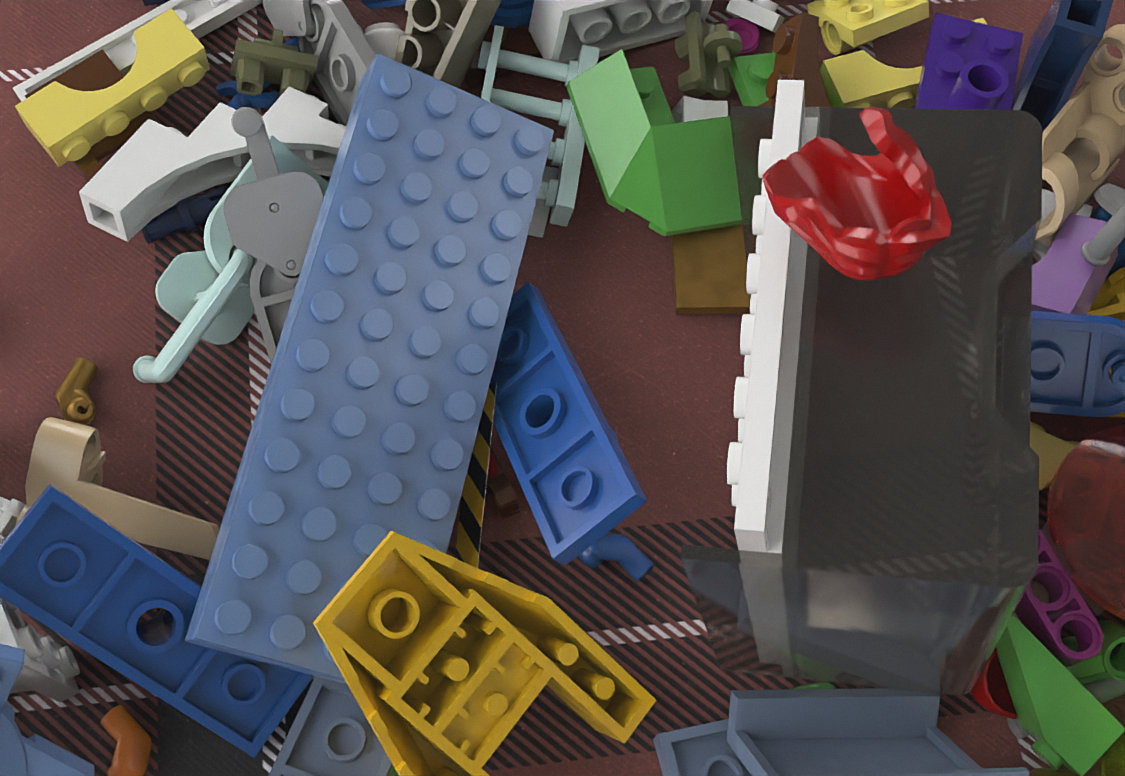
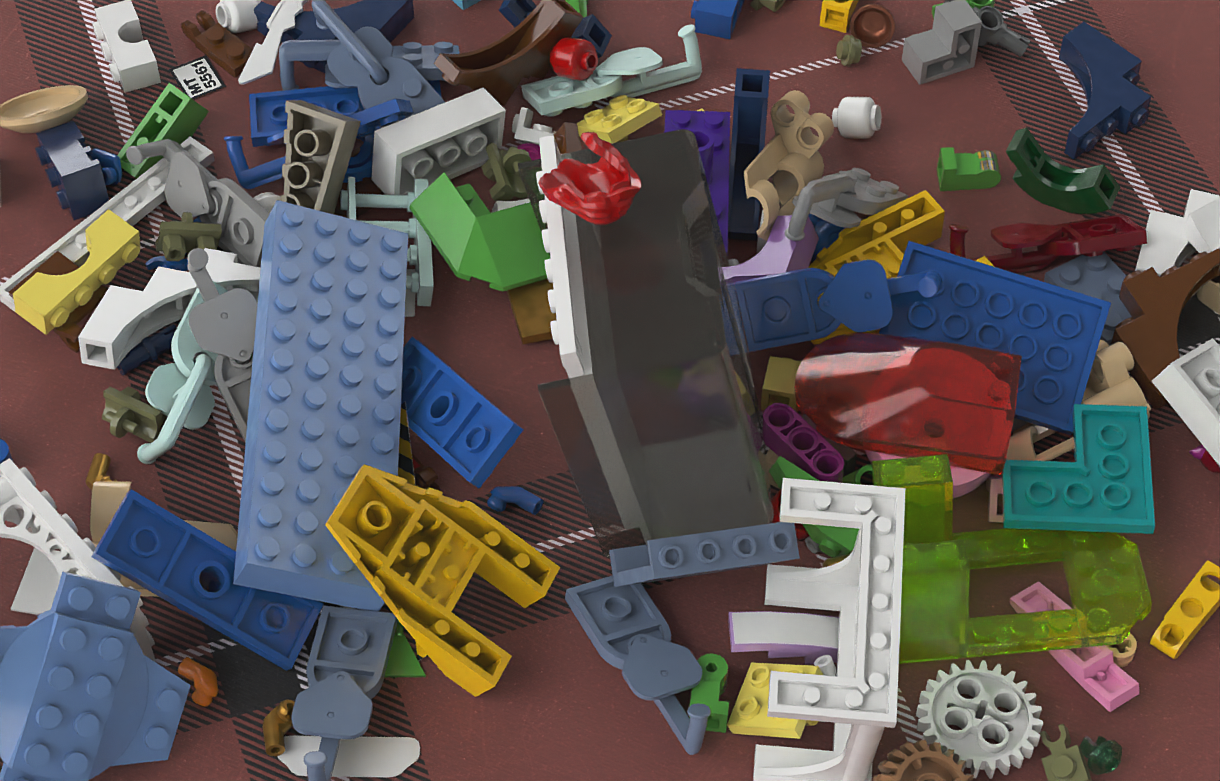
camera: 10 degrees left, 15 degrees down
(132, 311) = (129, 414): none -> olive hips

